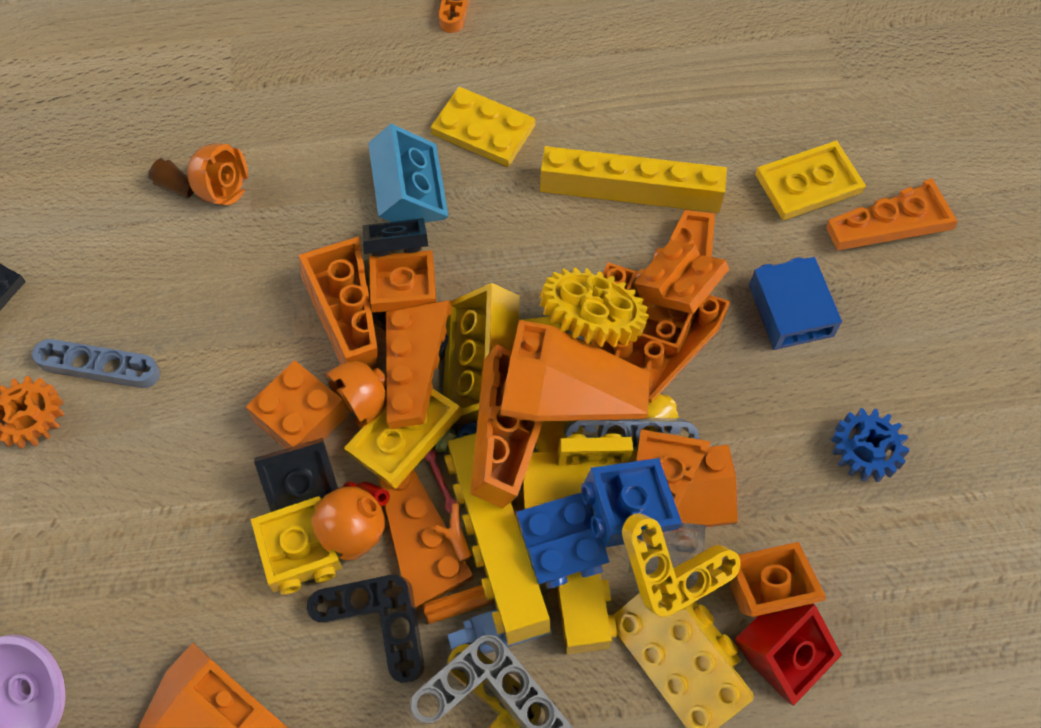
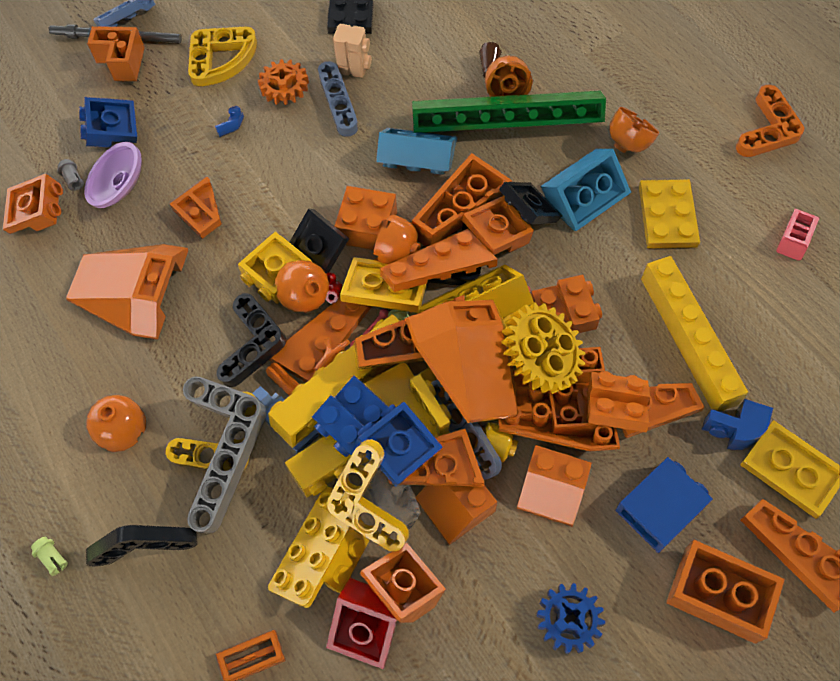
camera: 65 degrees right, 0 degrees up
(37, 502) = (233, 123): none -> blue arm
(48, 307) = (351, 50): none -> light nougat brick
(142, 603) = (198, 208): none -> orange wing
(239, 312) = (416, 150): none -> dark azure slope
(256, 201) = (508, 111): none -> green brick
(372, 100) = (631, 132): none -> orange cylinder
(530, 263) = (573, 299): none -> orange plate
(577, 41) = (796, 235): none -> coral slope
(727, 387) = (554, 485): none -> orange slope
(751, 194) = (742, 430): none -> blue brick
(904, 298) = (726, 592): none -> orange brick

